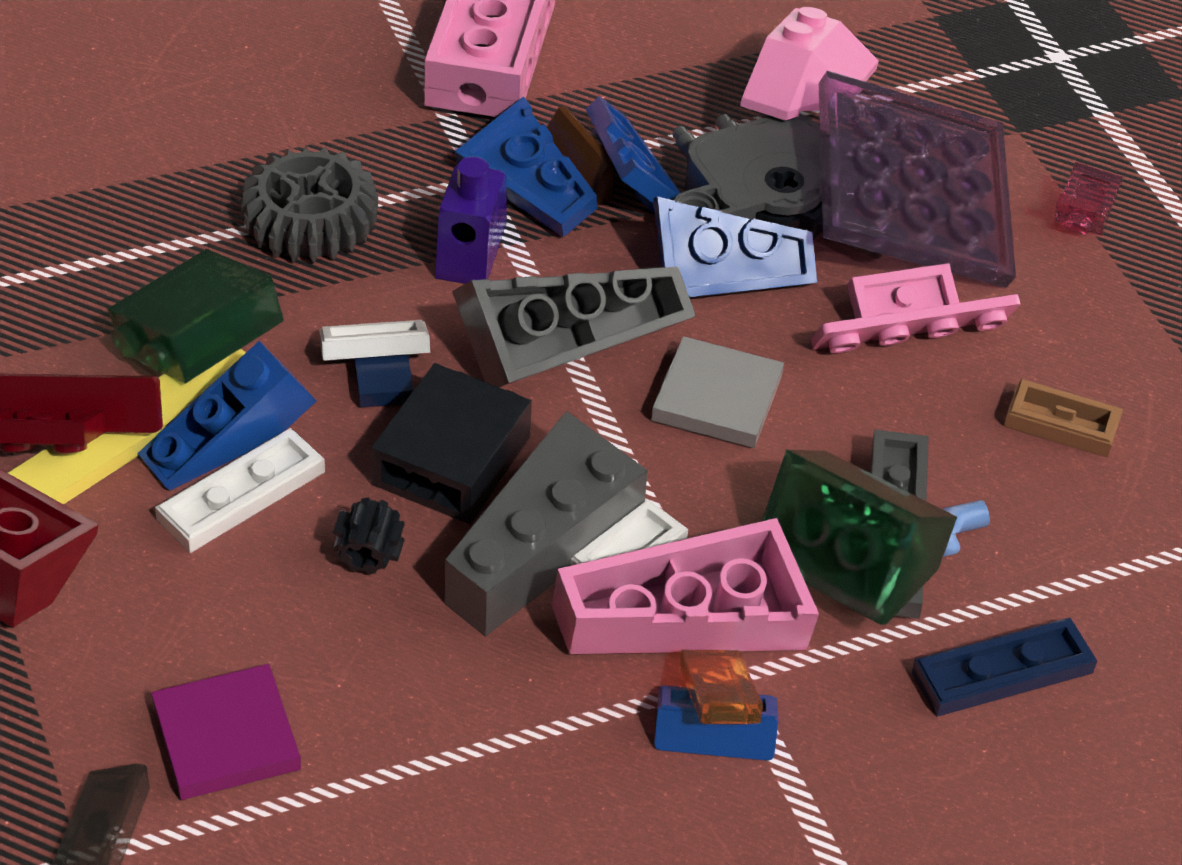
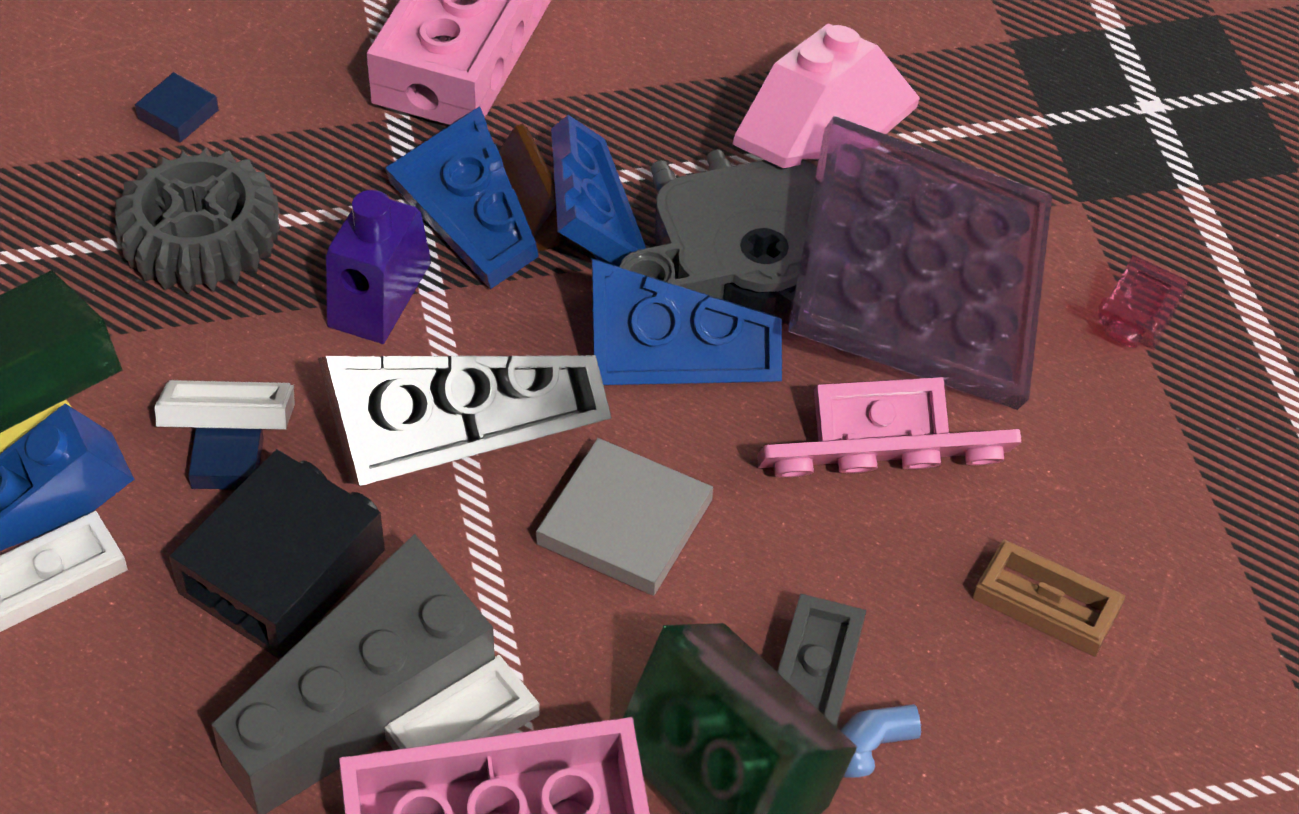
camera: 10 degrees right, 5 degrees up
(262, 122) = (177, 107): none -> dark blue tile
(368, 535) = (142, 670): black gear -> none

